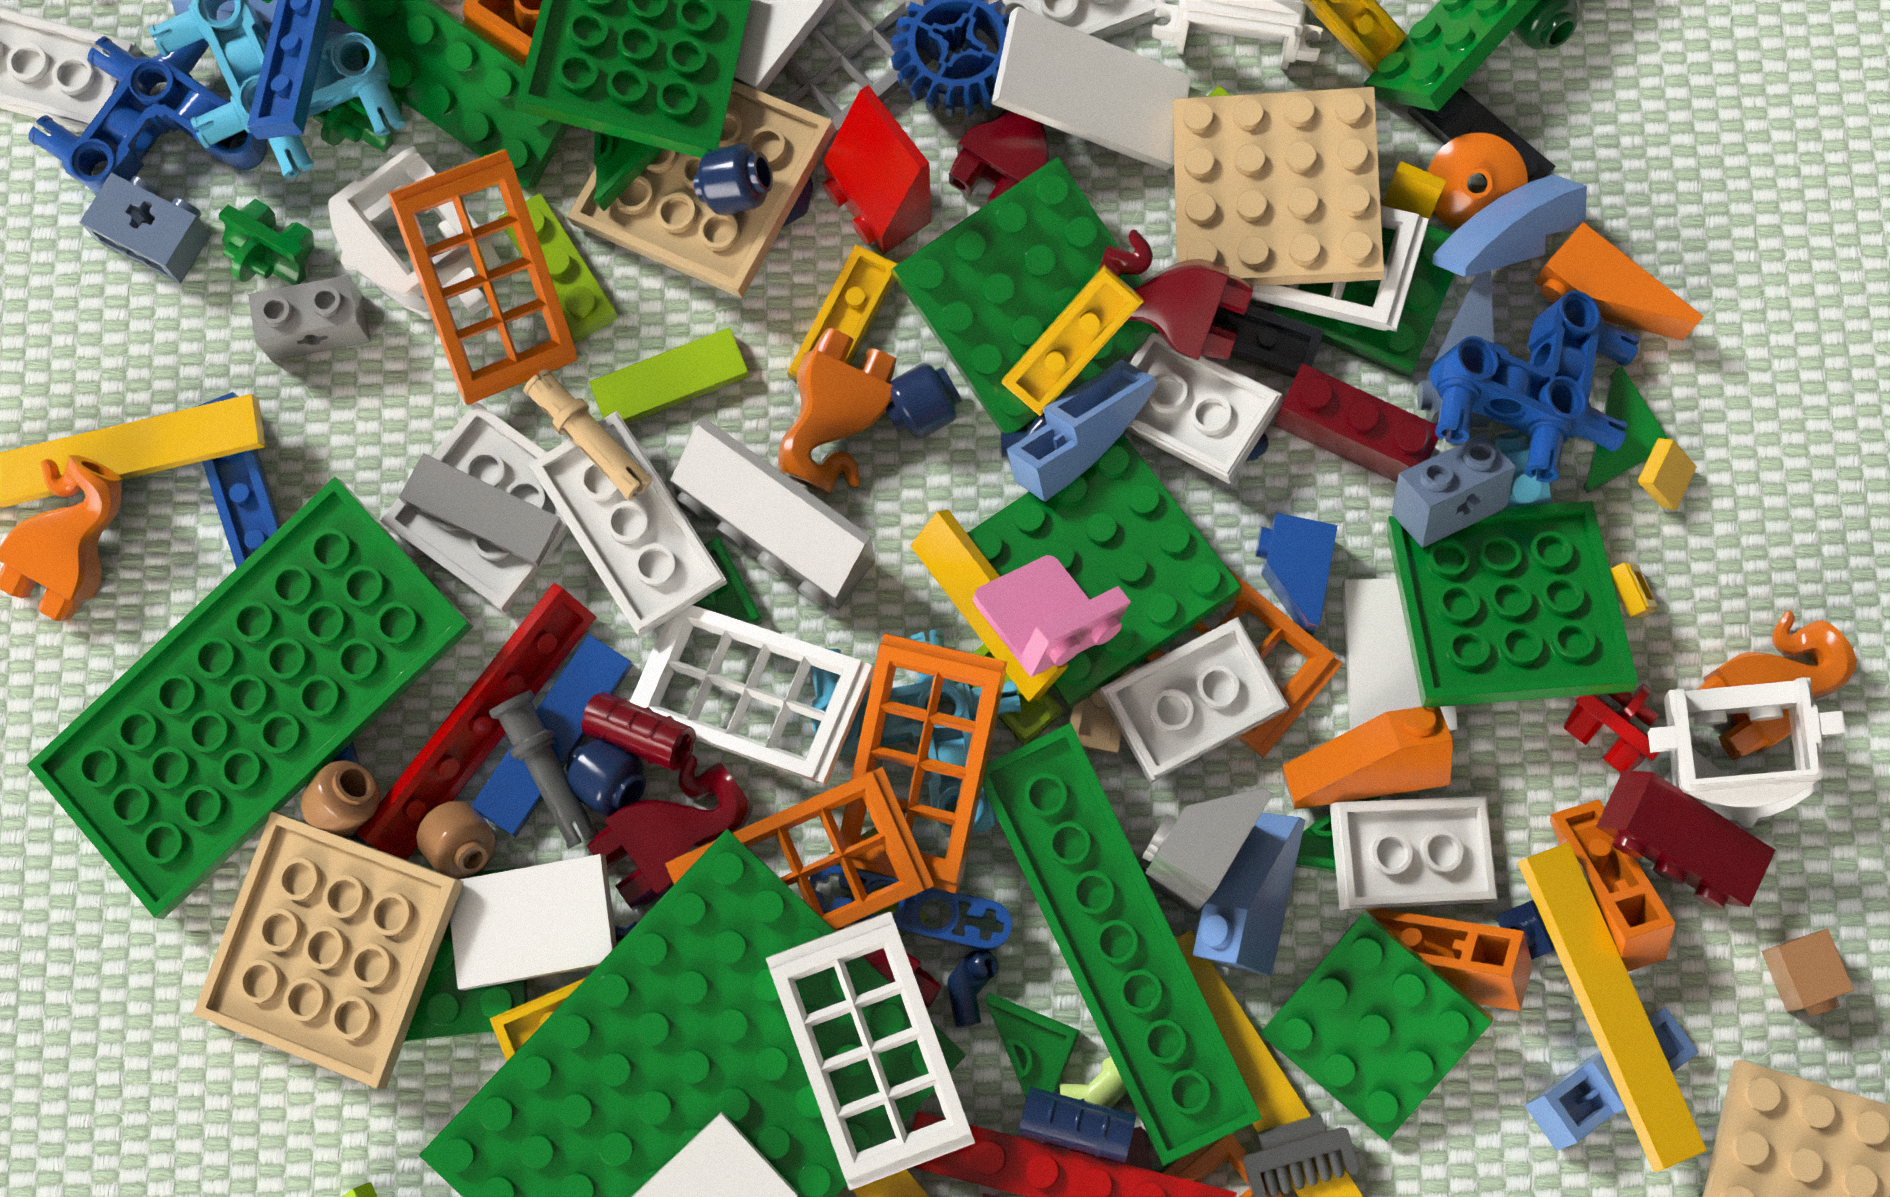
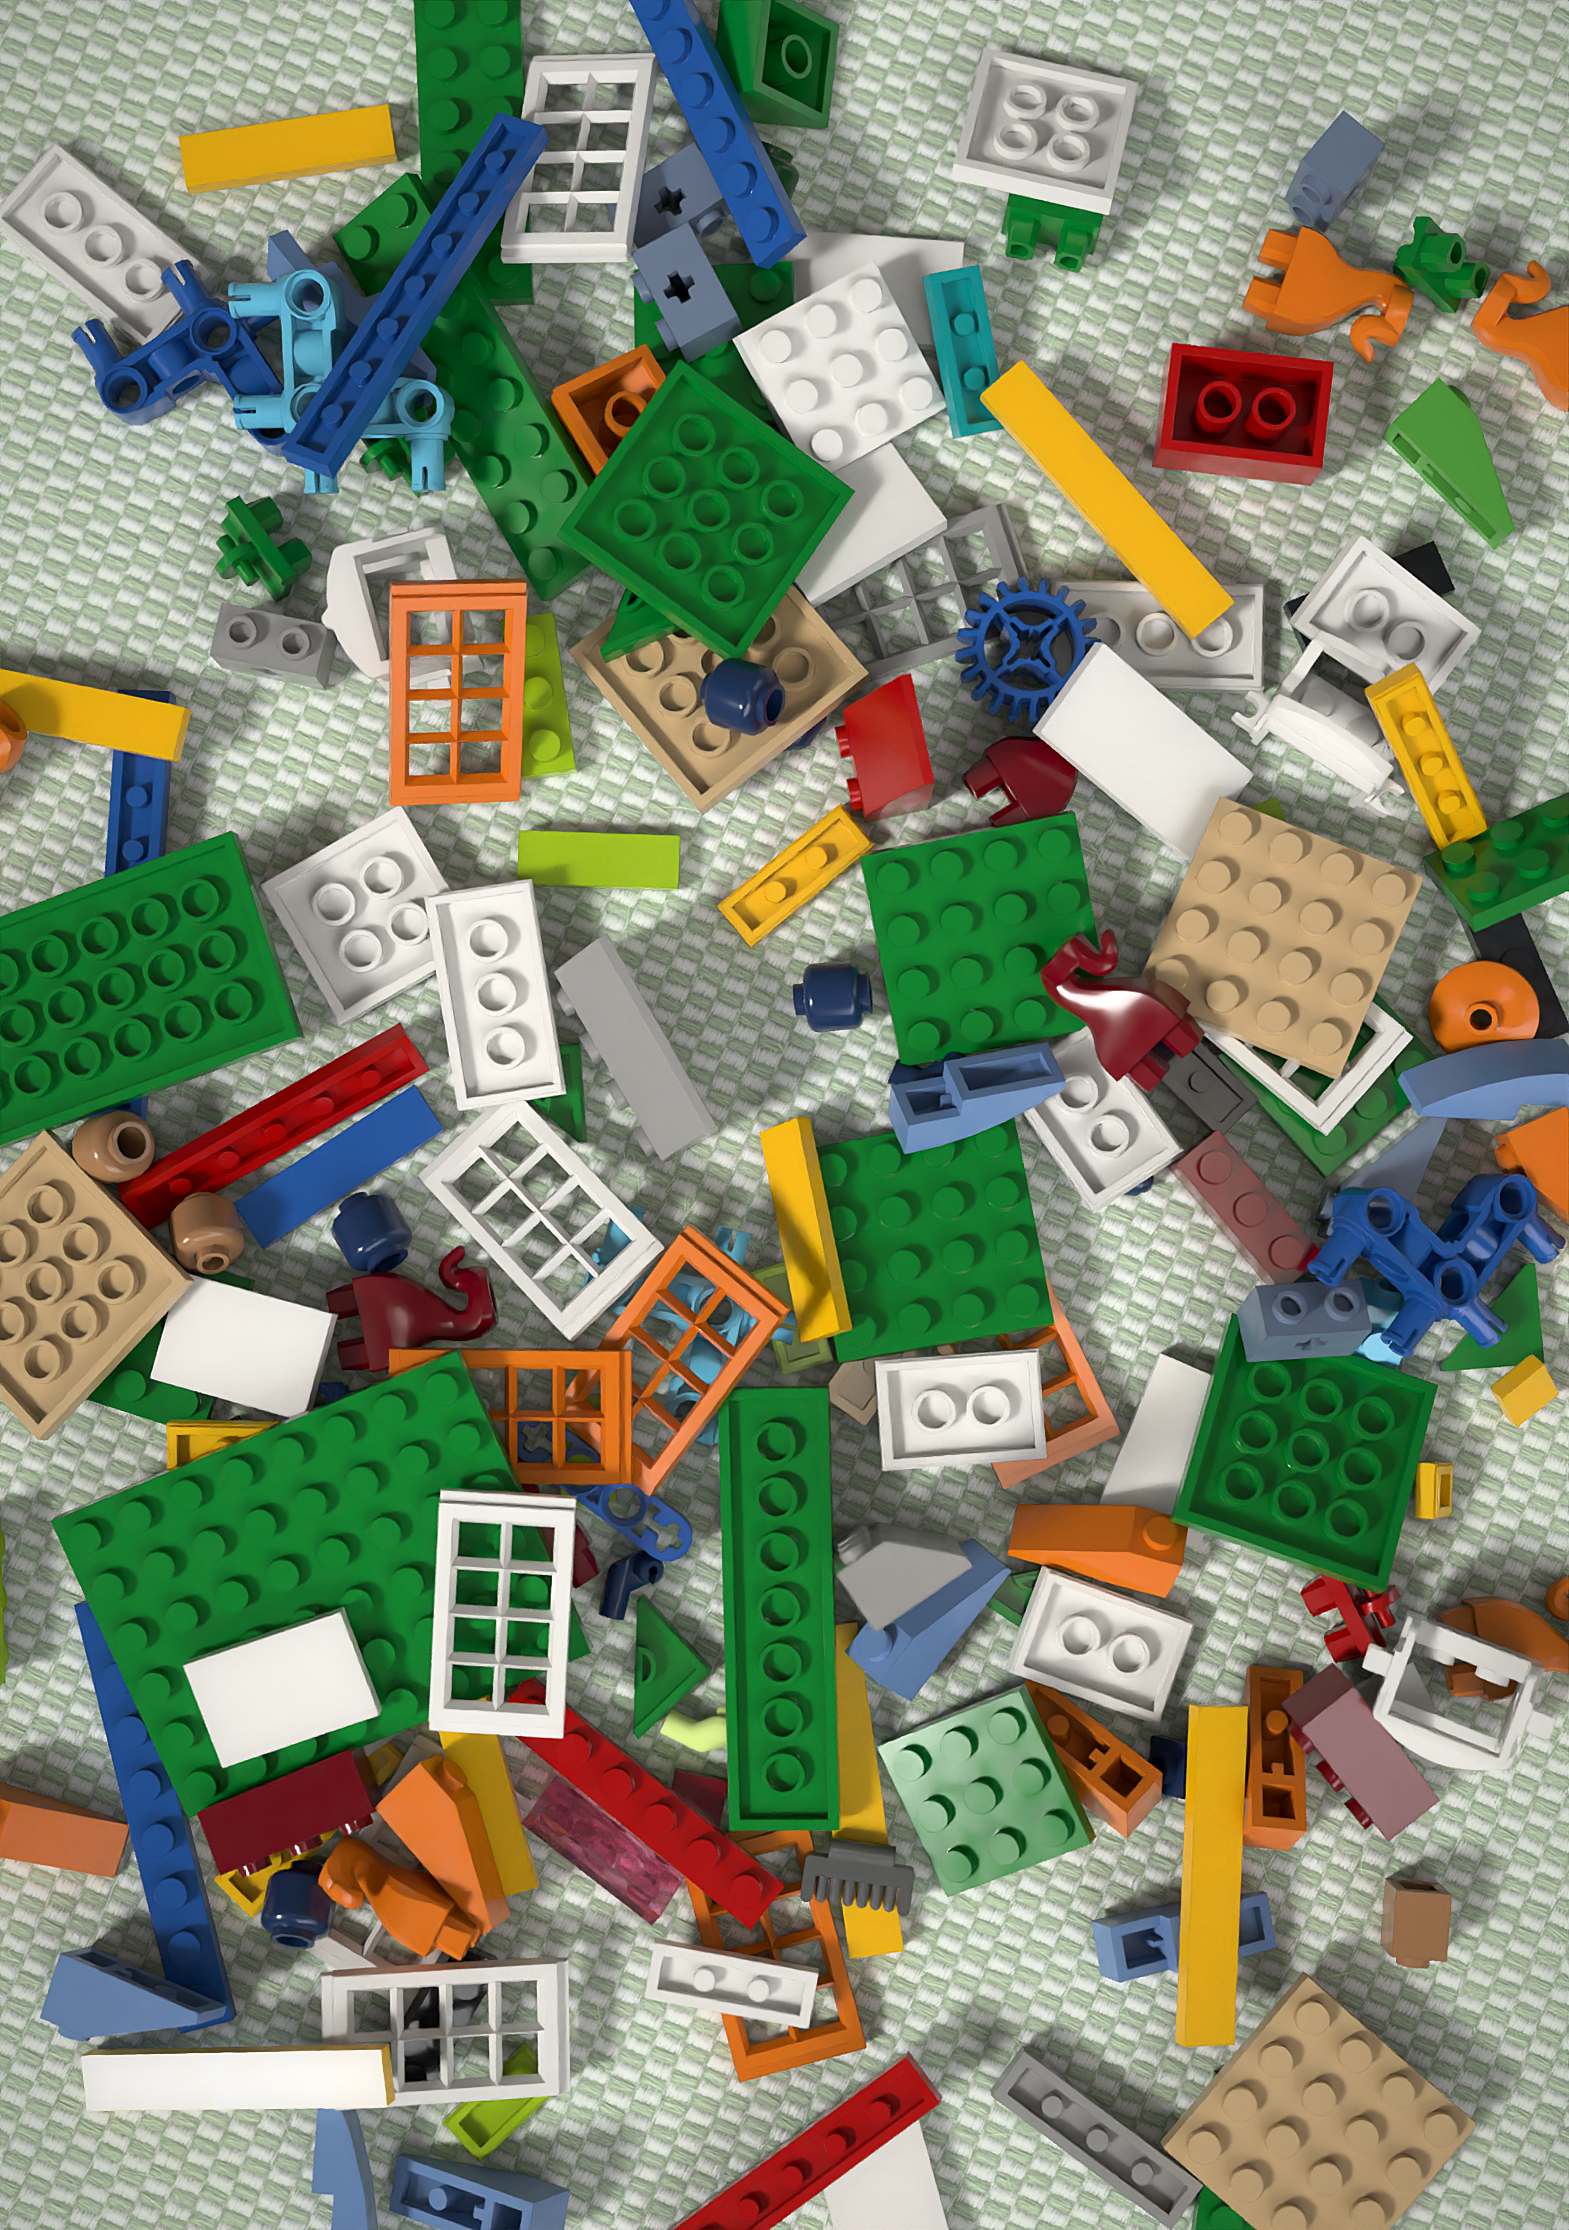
camera: 25 degrees right, 10 degrees up
(120, 222) = (128, 459): sand blue brick -> none
(480, 509) = (360, 919): light grey tile -> none
(534, 746) = (315, 1176): dark grey pin -> none
(572, 418) = (485, 876): tan pin -> none
(638, 731) = (420, 1205): dark red axle -> none
(834, 405) = (743, 967): orange hips -> none
(1047, 615) = (852, 1273): bright pink bracket -> none
(1072, 340) = (1002, 1009): yellow tile -> none
(1077, 1124) = (667, 1758): dark blue axle -> none
(1297, 565) = (1122, 1321): blue slope -> none
(1414, 190) = (1415, 997): yellow tile -> none

